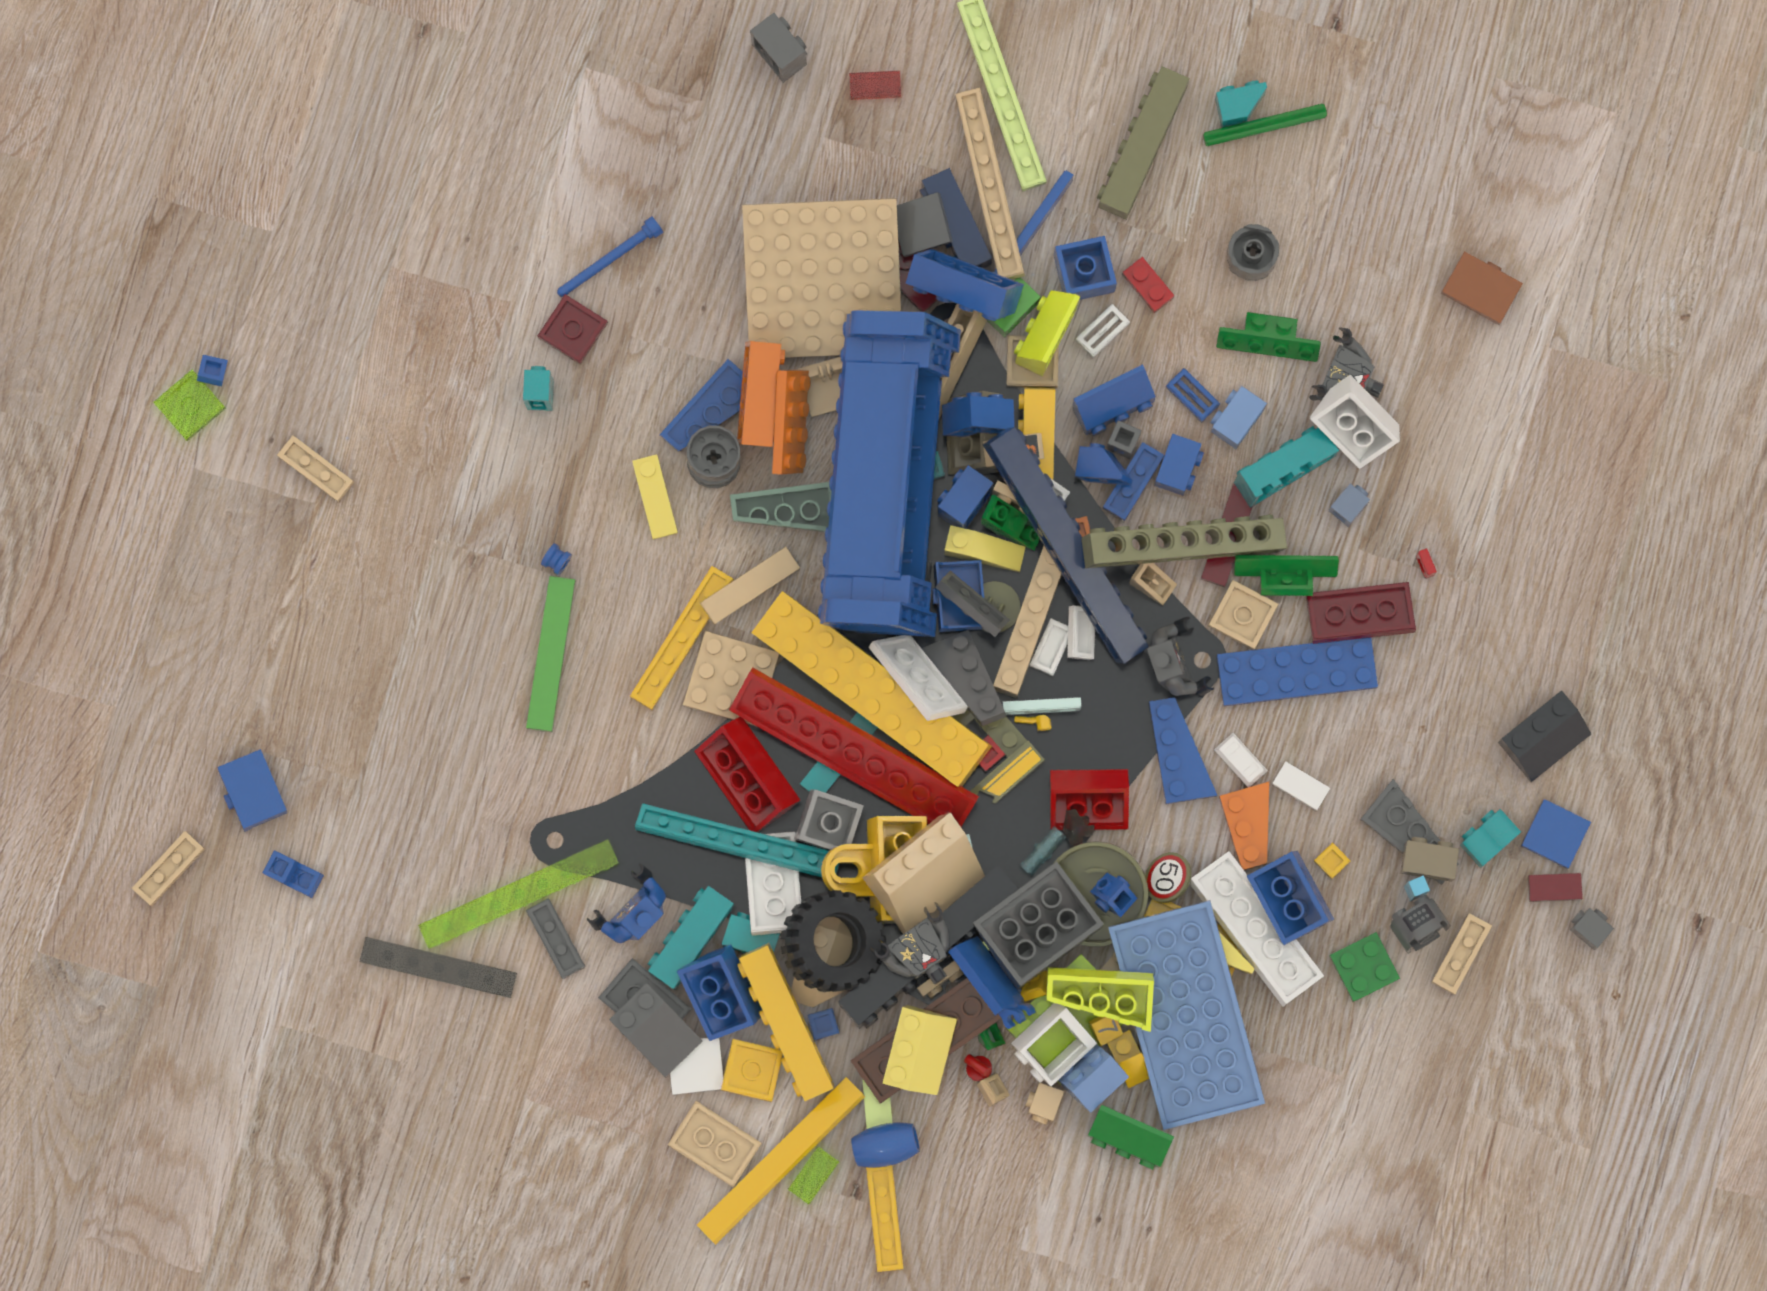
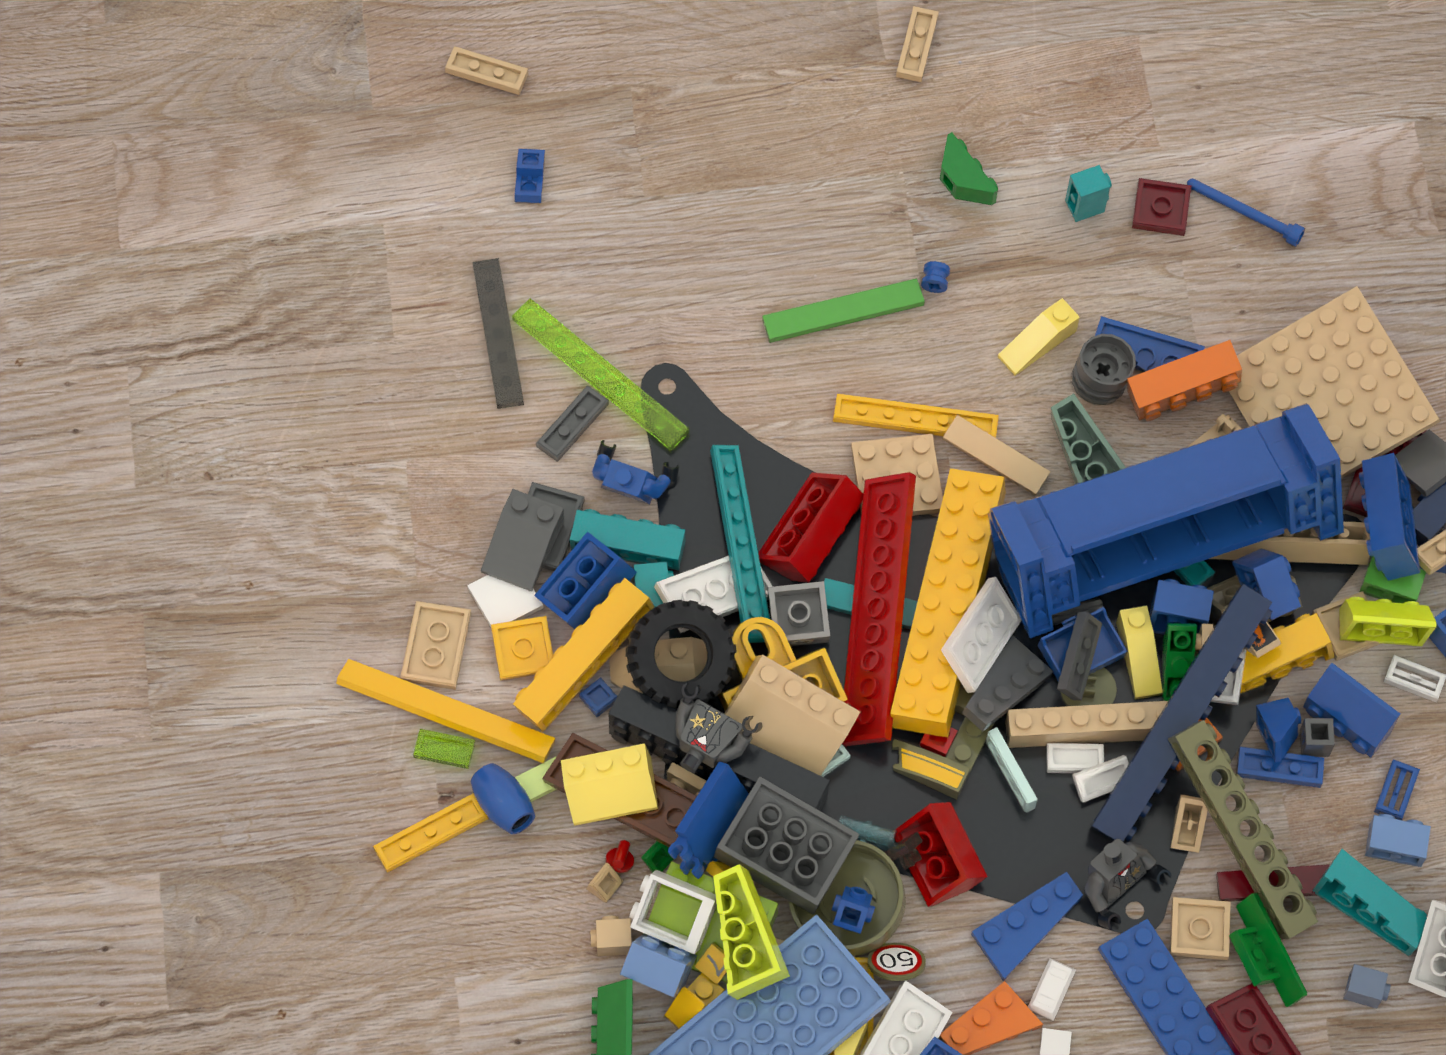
camera: 60 degrees right, 15 degrees down
(251, 790) = (591, 109): blue container -> none
(465, 488) = (964, 175): none -> green slope
(790, 421) = (1172, 418): orange plate -> none
(1042, 721) = (996, 778): yellow hand -> none
(1179, 464) = (1319, 802): blue brick -> none

